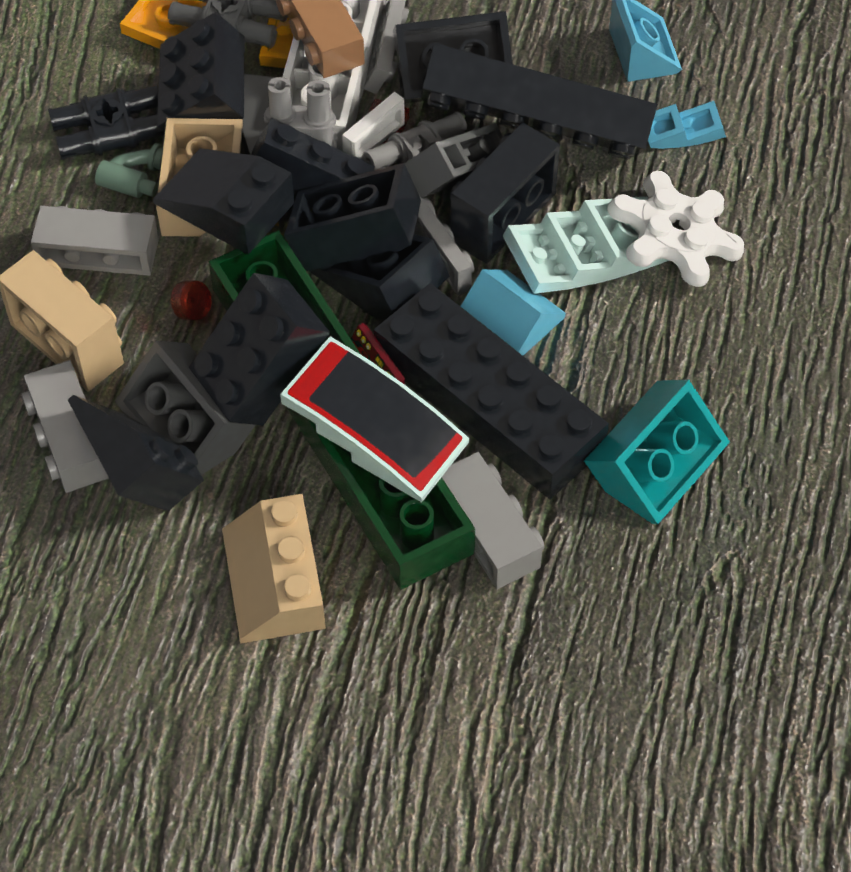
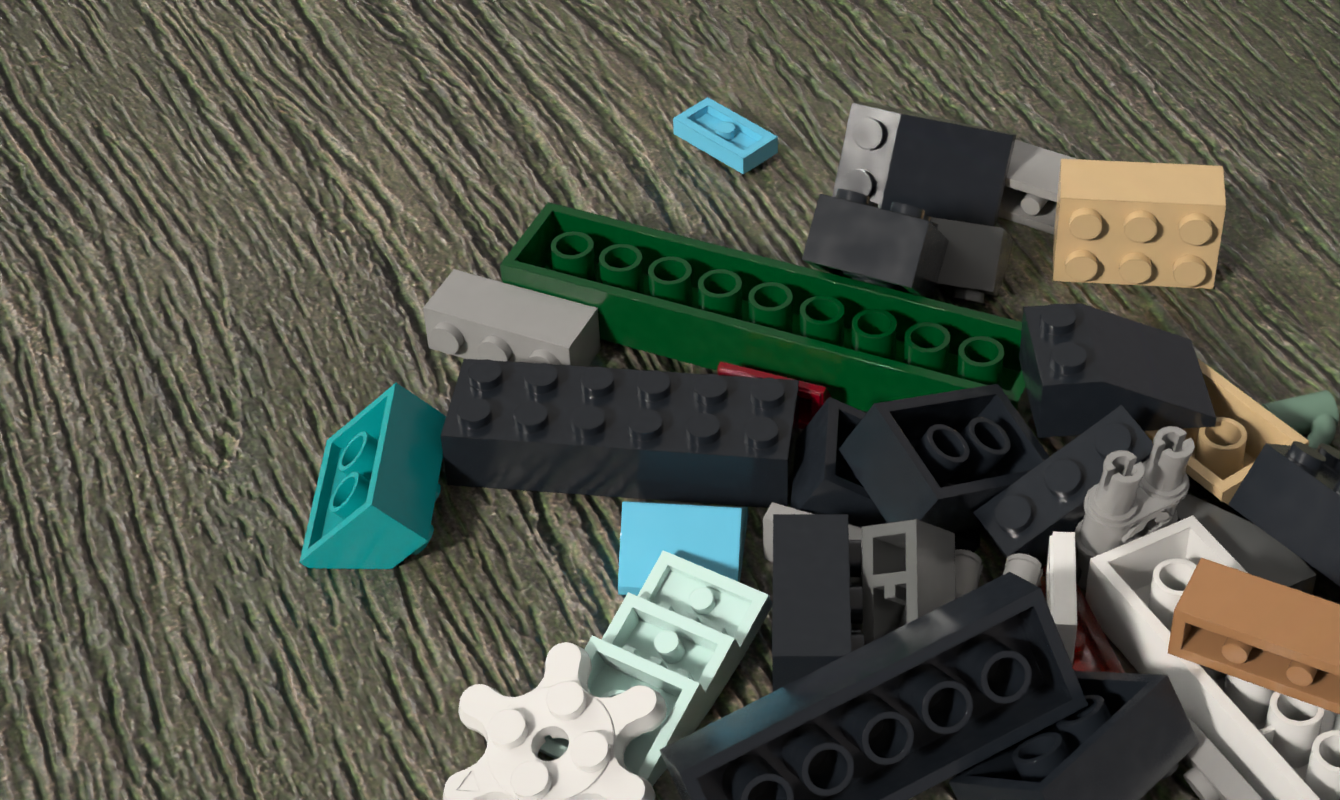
camera: 145 degrees right, 15 degrees down
(96, 239) = (1245, 324): light grey brick -> none
(197, 610) = (725, 135): none -> medium azure plate
(273, 570) = (676, 193): tan slope -> none
(375, 419) = (686, 258): slope -> none

